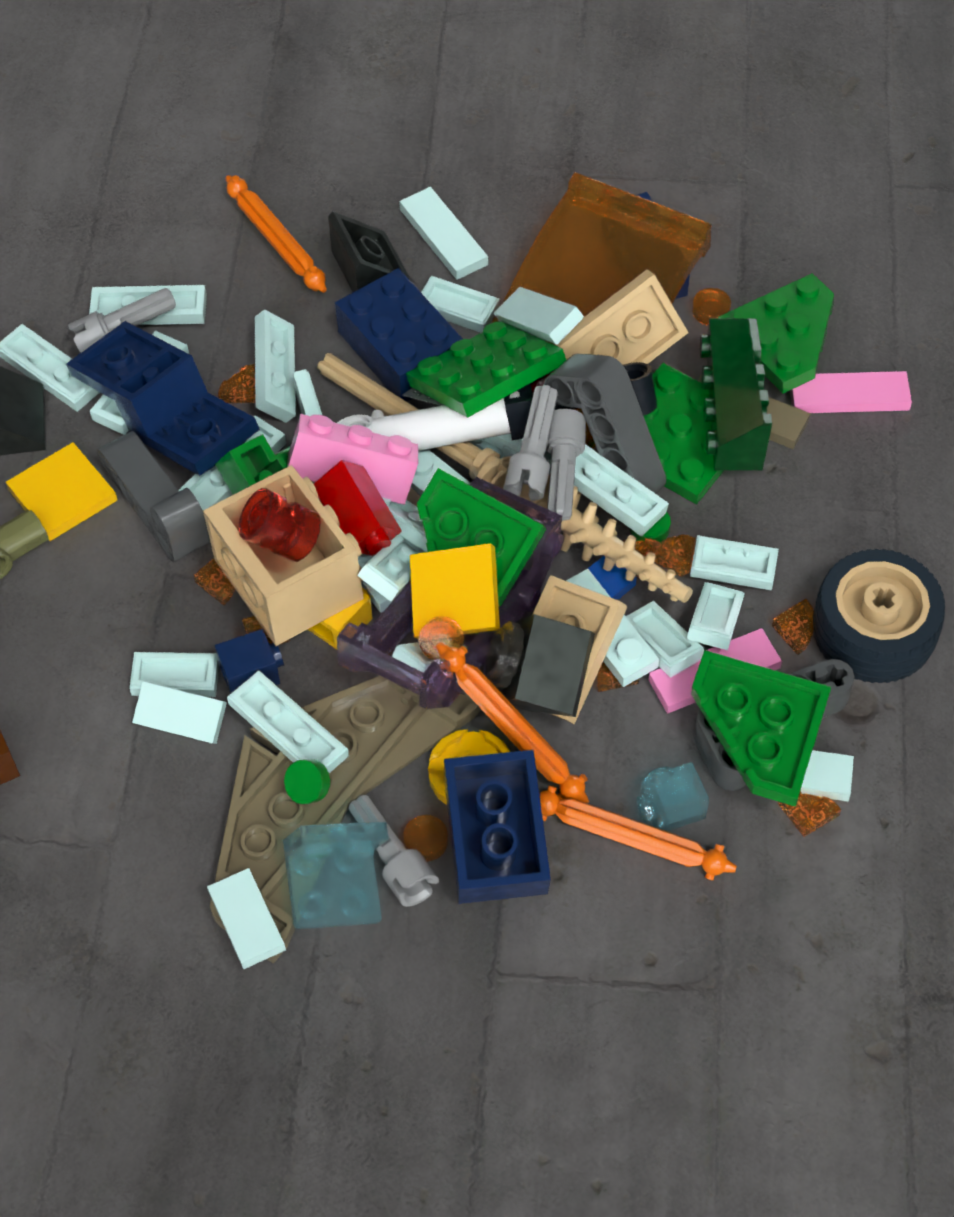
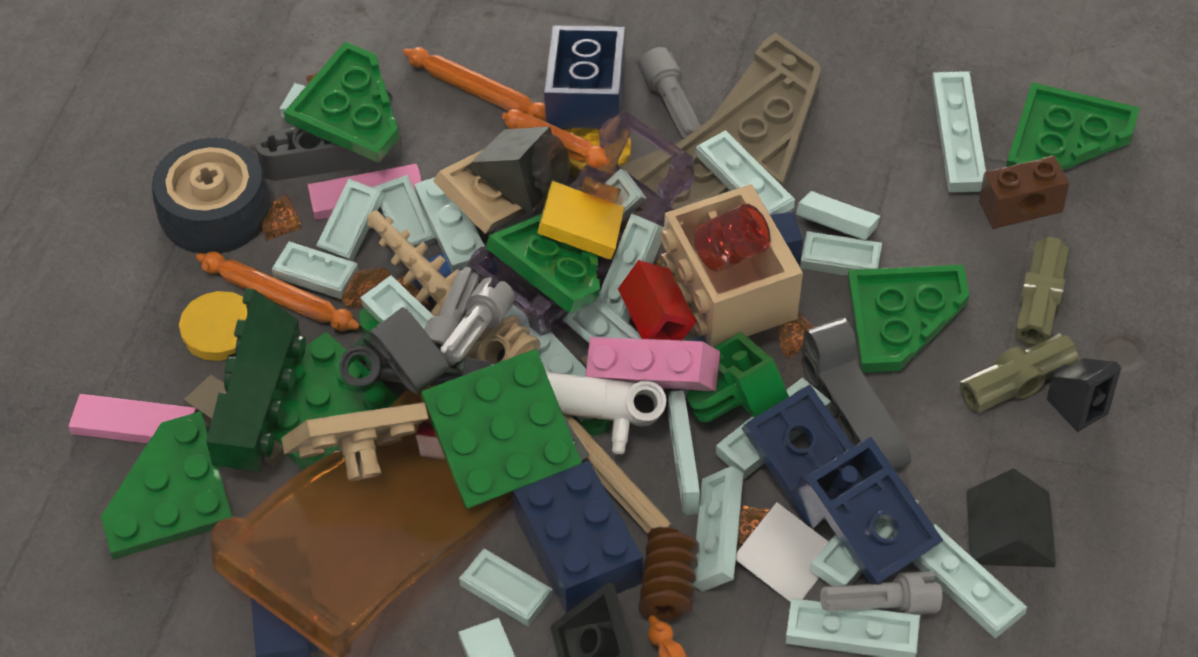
camera: 170 degrees left, 5 degrees down
(39, 852) = (958, 131): none -> light aqua plate
(62, 490) = (949, 437): yellow tile -> none
(105, 611) = (902, 311): none -> green plate
(219, 359) = (782, 553): none -> white sticker
(246, 918) = (792, 50): light aqua tile -> none
(307, 781) = (733, 124): green tile -> none
(312, 316) = (668, 574): none -> reddish brown piece
(334, 874) = (718, 70): clear light blue bracket -> none
(427, 836) = (643, 105): clear orange tile -> none
(539, 315) = (432, 466): light aqua tile -> none
(673, 797) = (437, 94): clear light blue brick -> none
(754, 533) = (278, 291): none -> orange wheel
(810, 495) = (210, 324): none -> yellow tile

